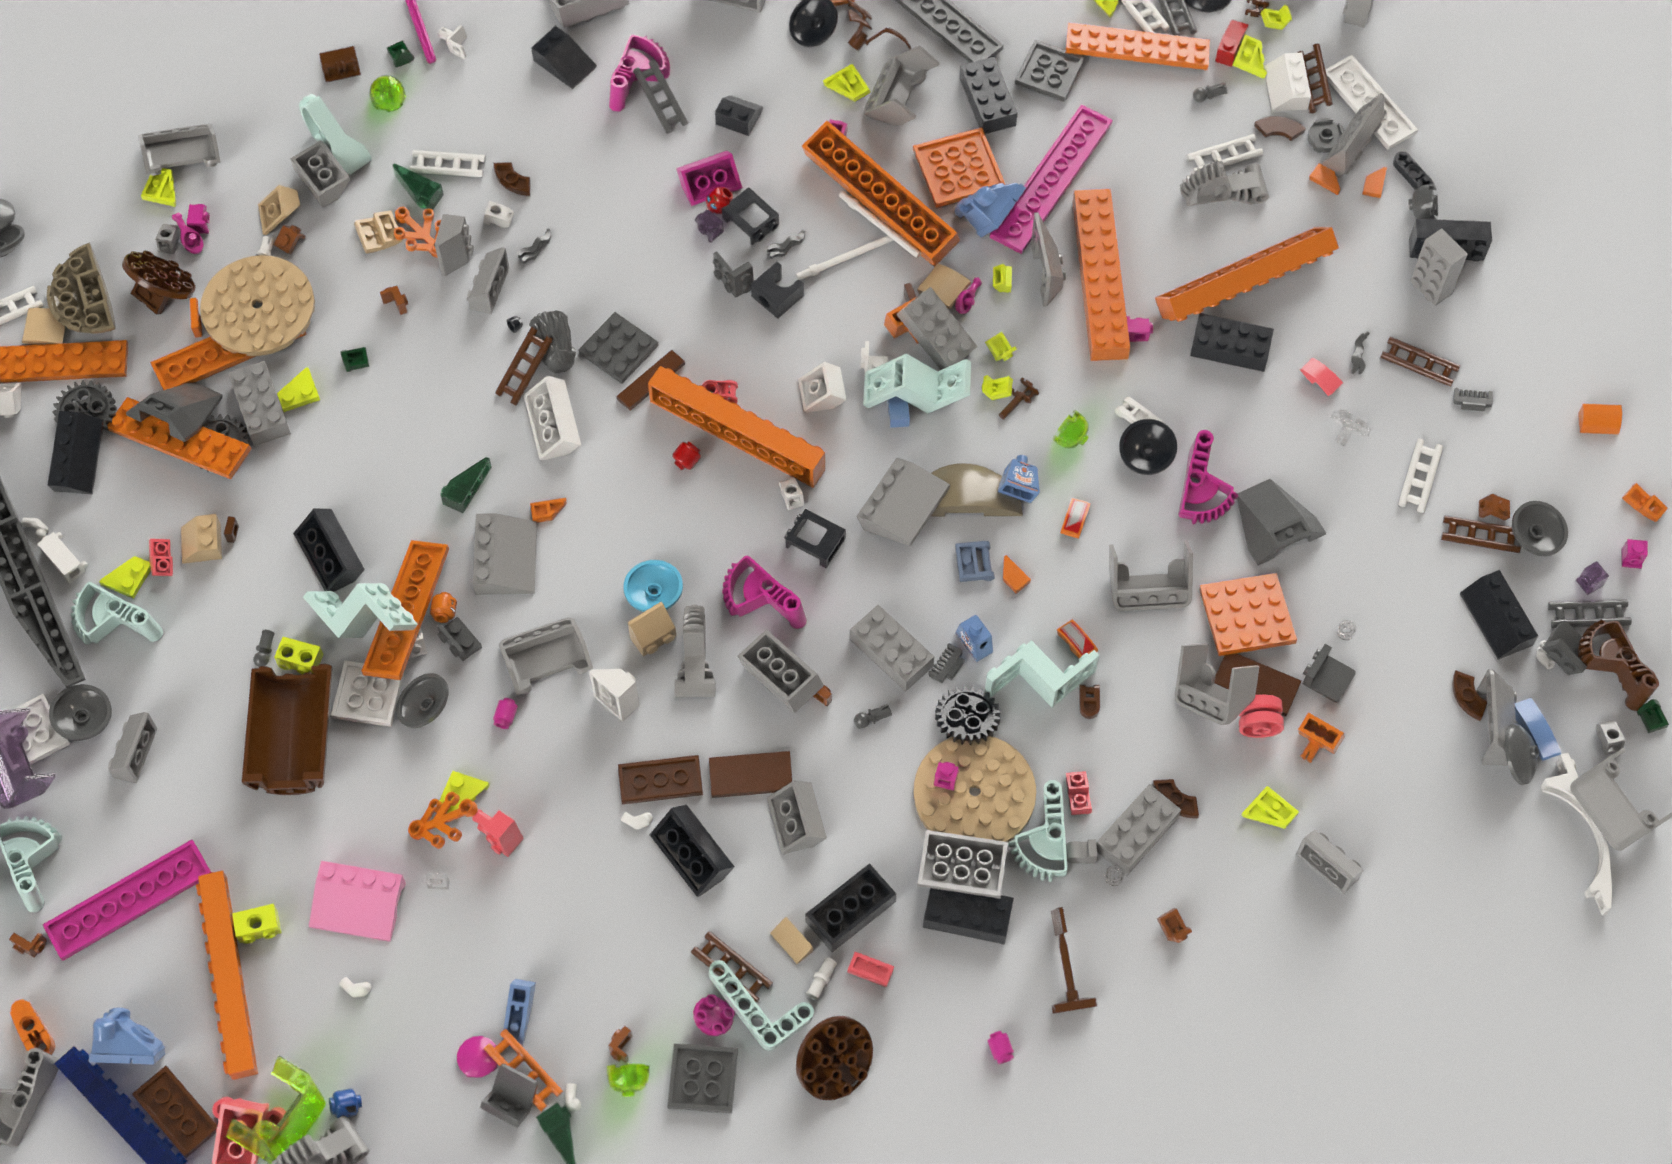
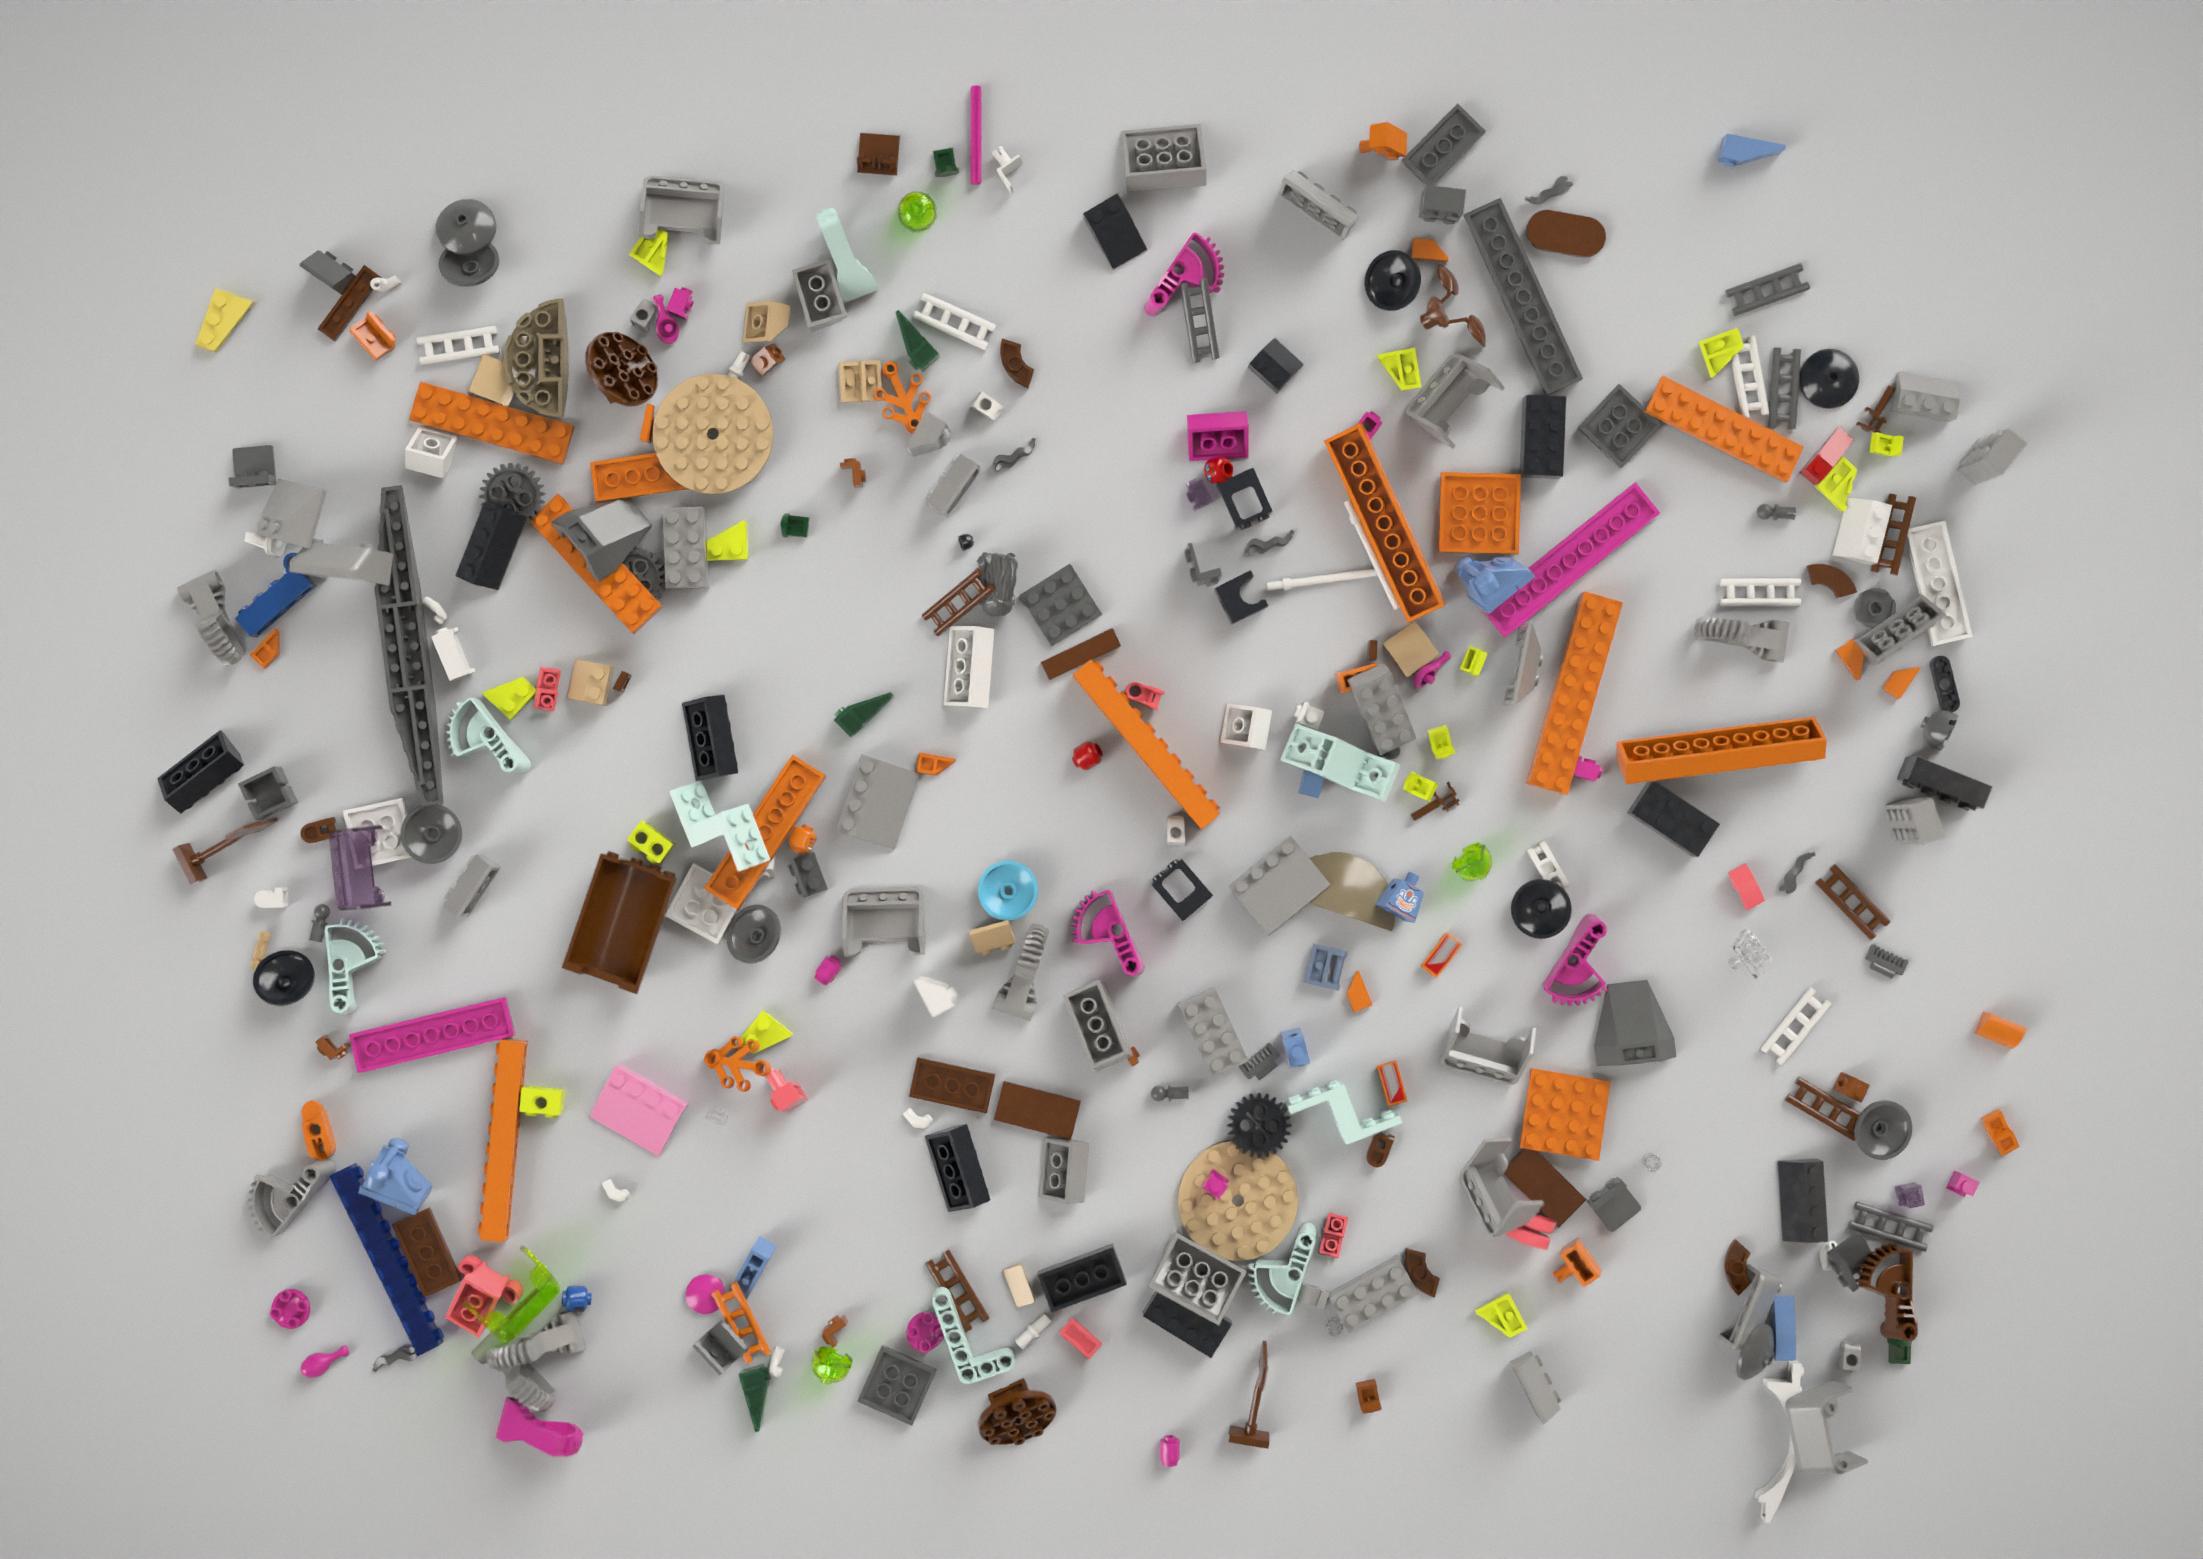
camera: 20 degrees right, 25 degrees up
(261, 658) = (615, 831): dark grey pin -> none

